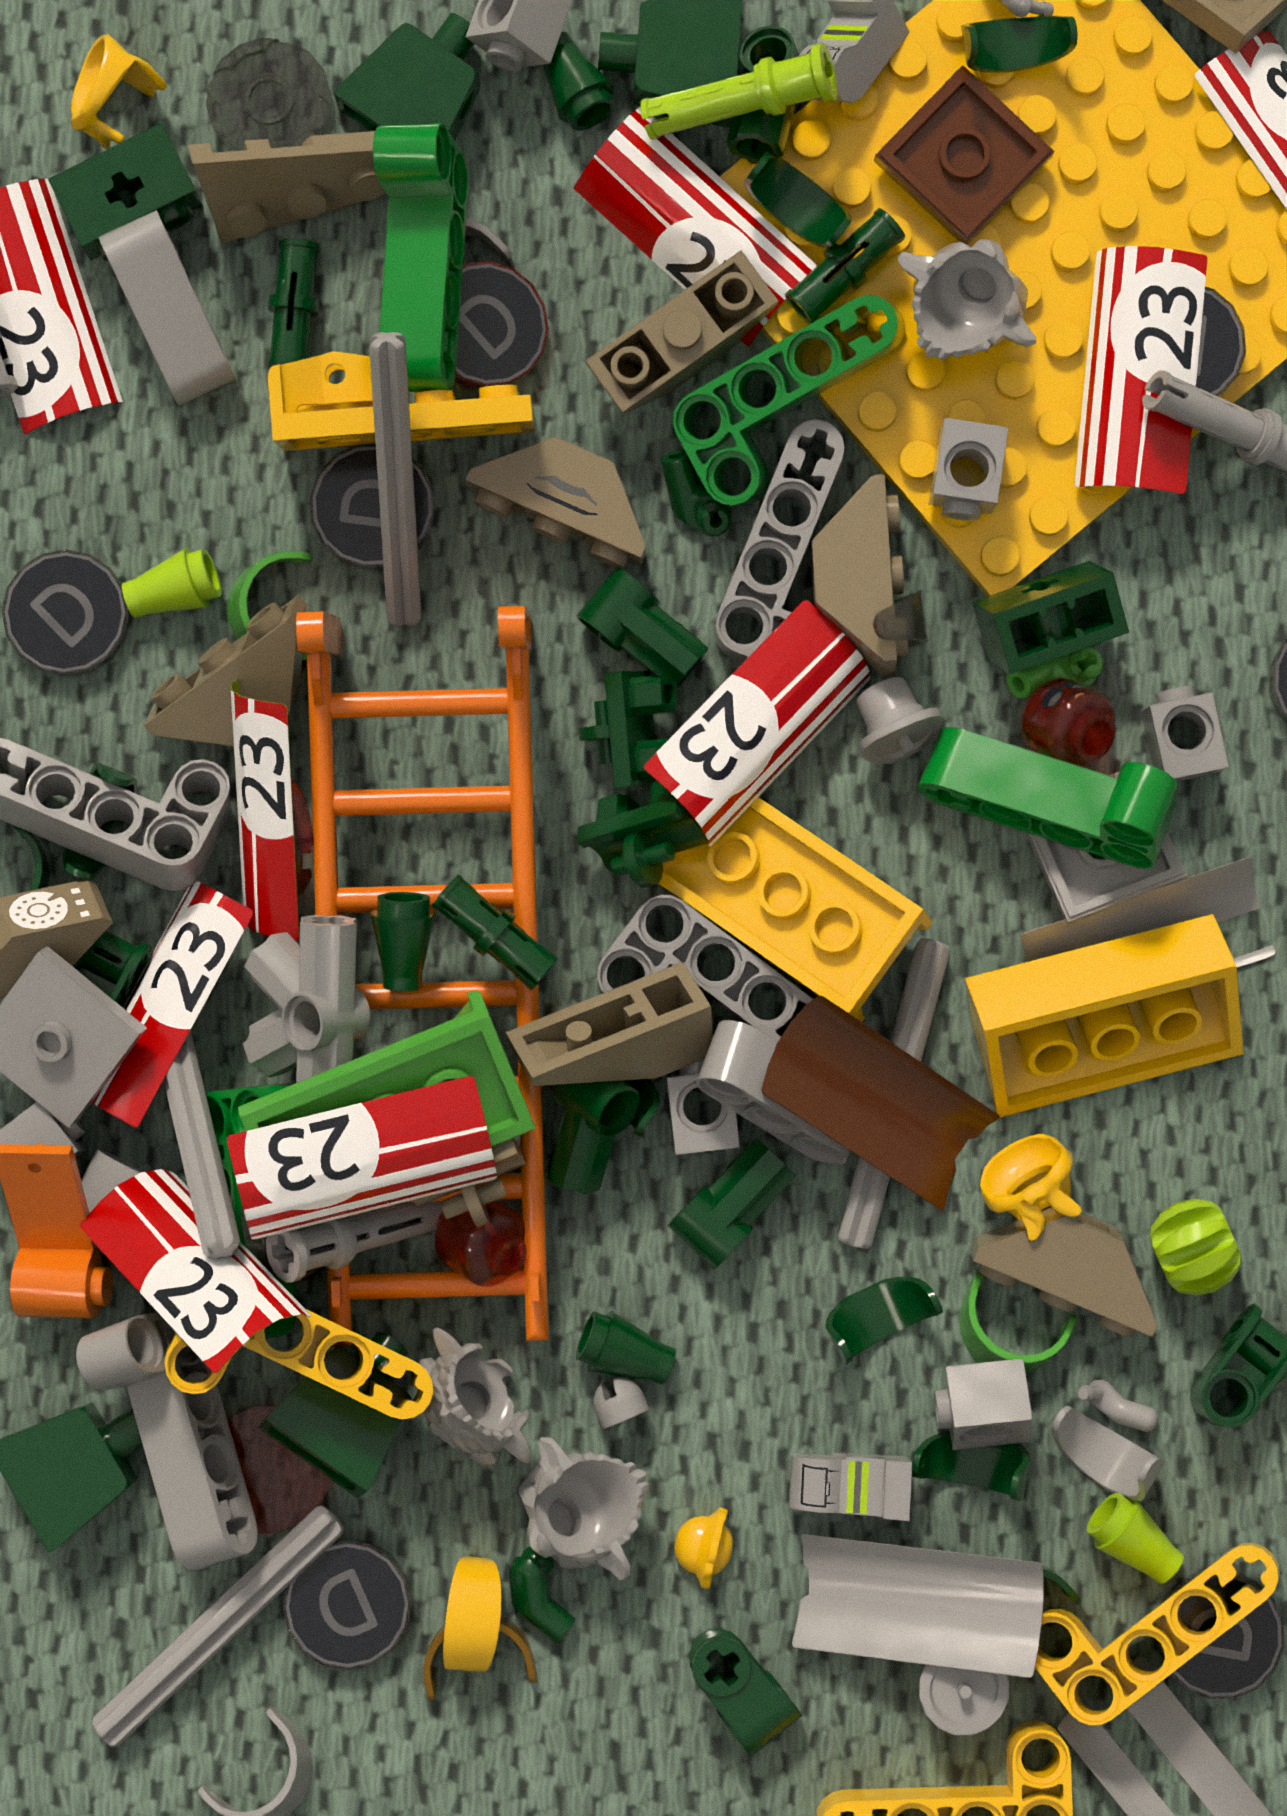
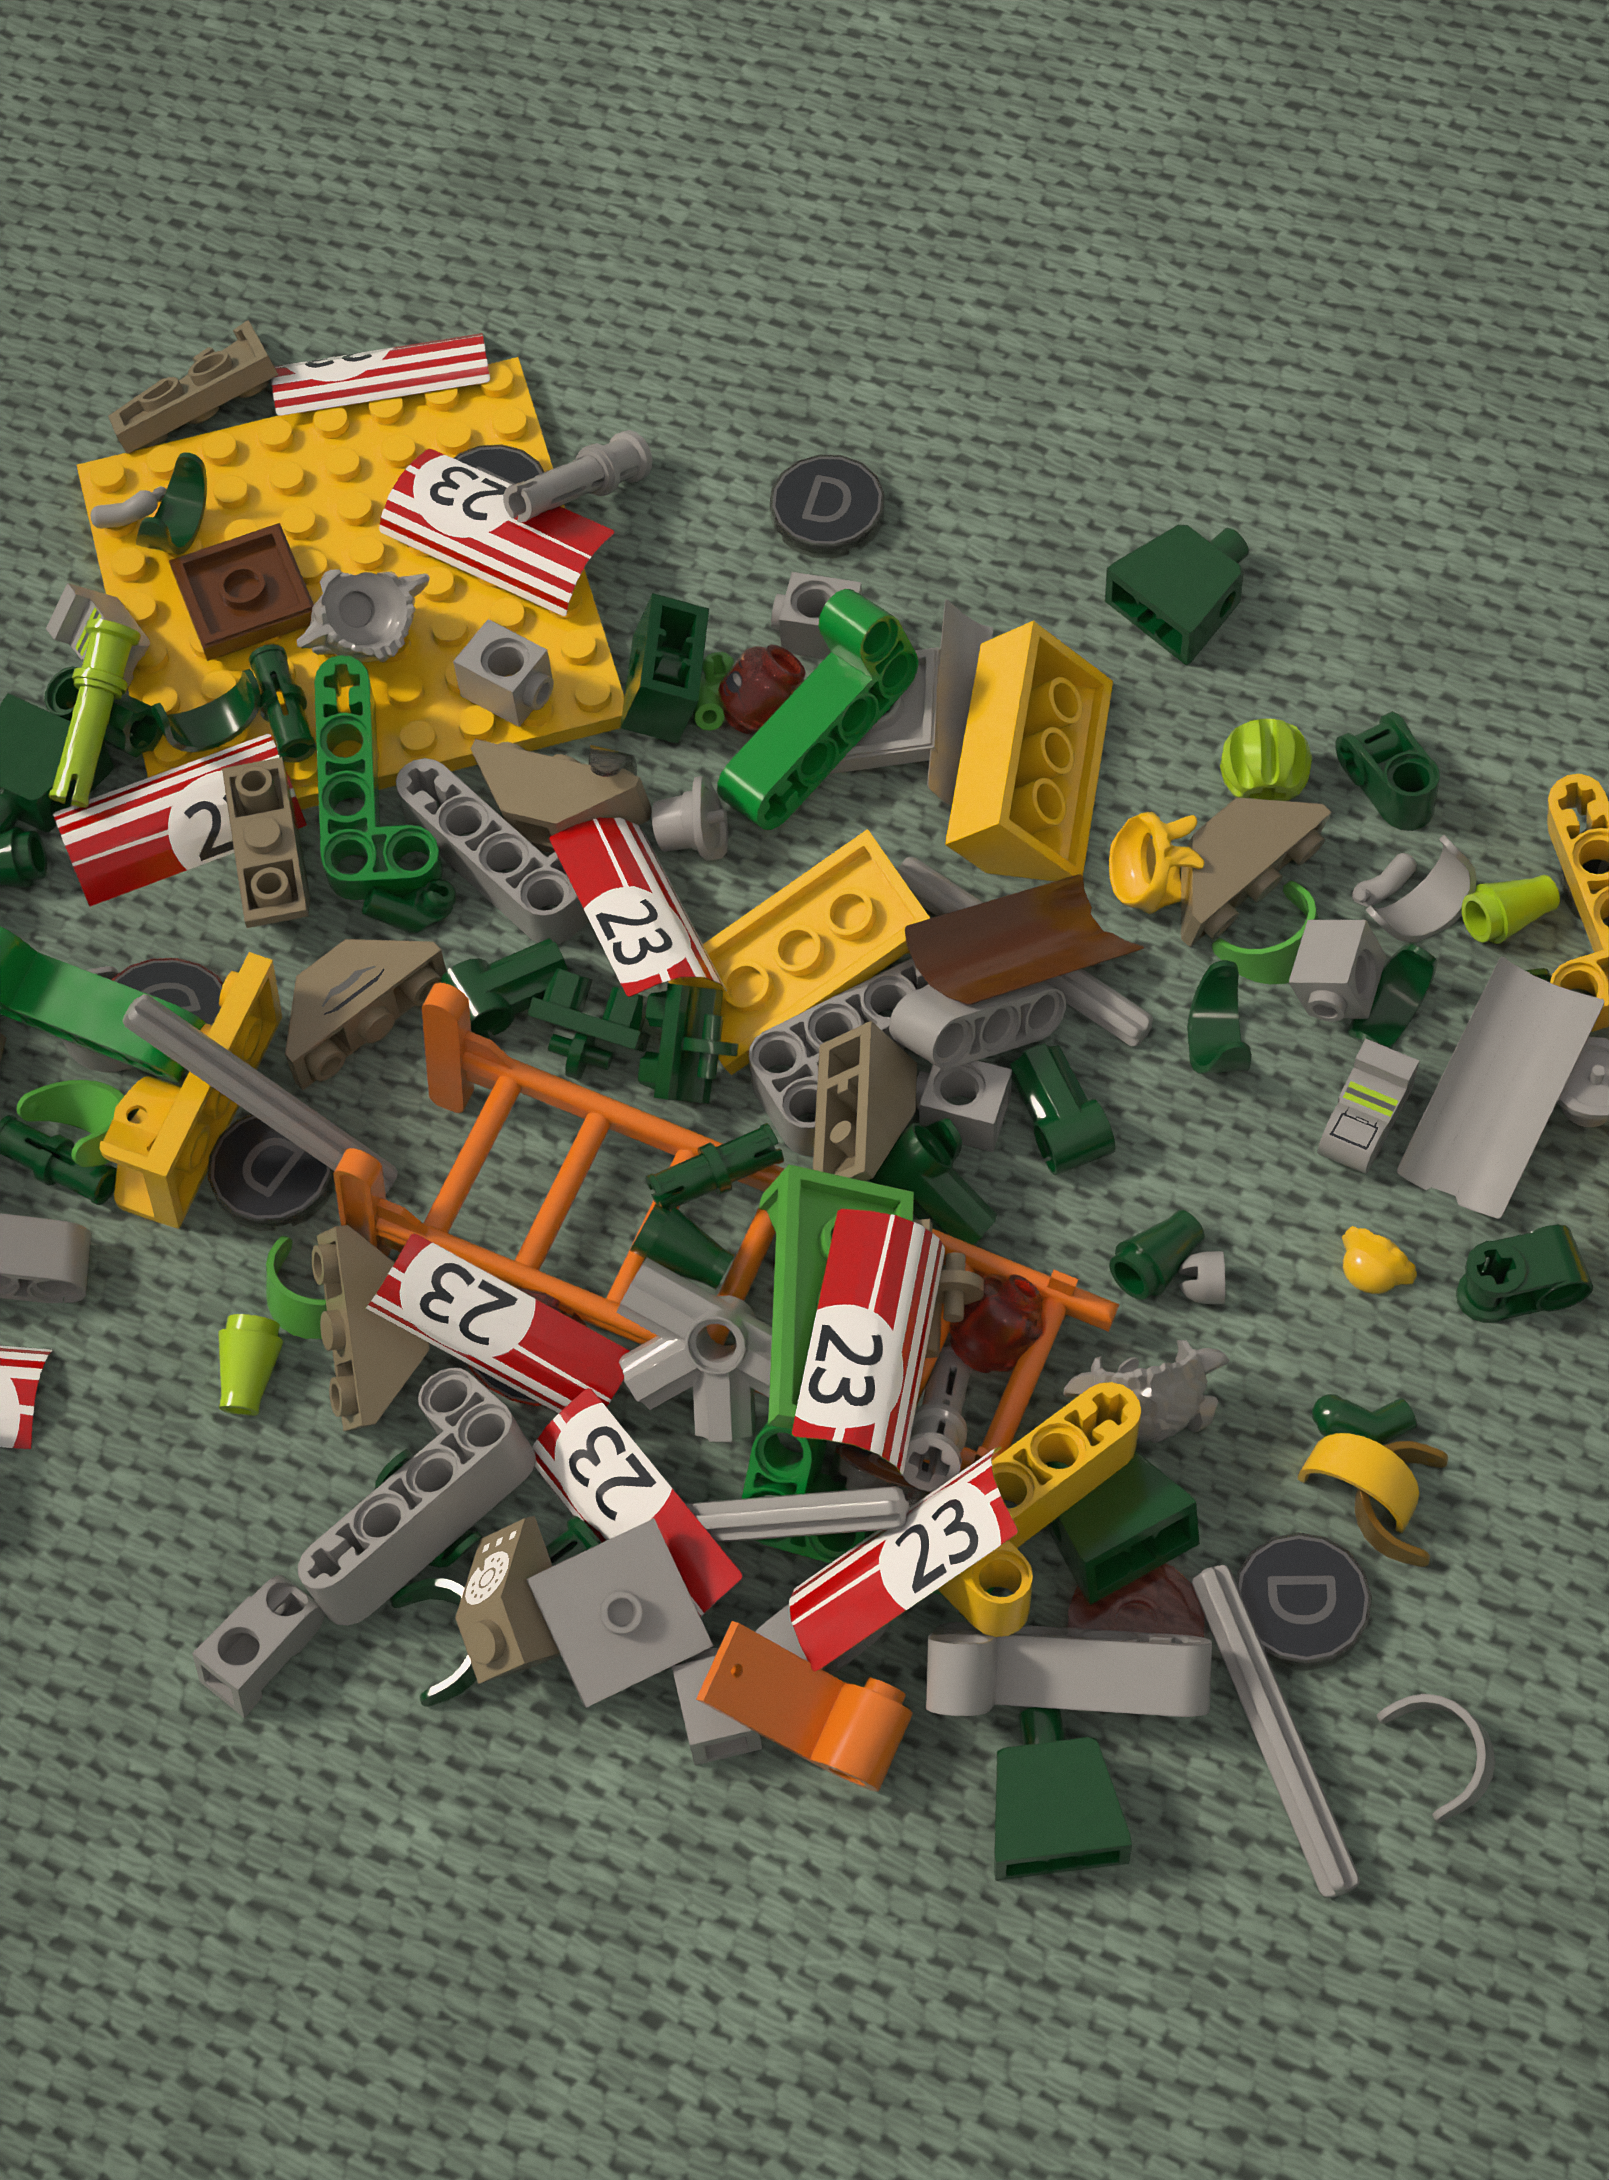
camera: 60 degrees left, 25 degrees down
(66, 613) = (219, 1474): black tile -> none
(360, 309) = (78, 1104): none -> bright green helmet
(582, 1507) = (1292, 1336): light grey hair -> none

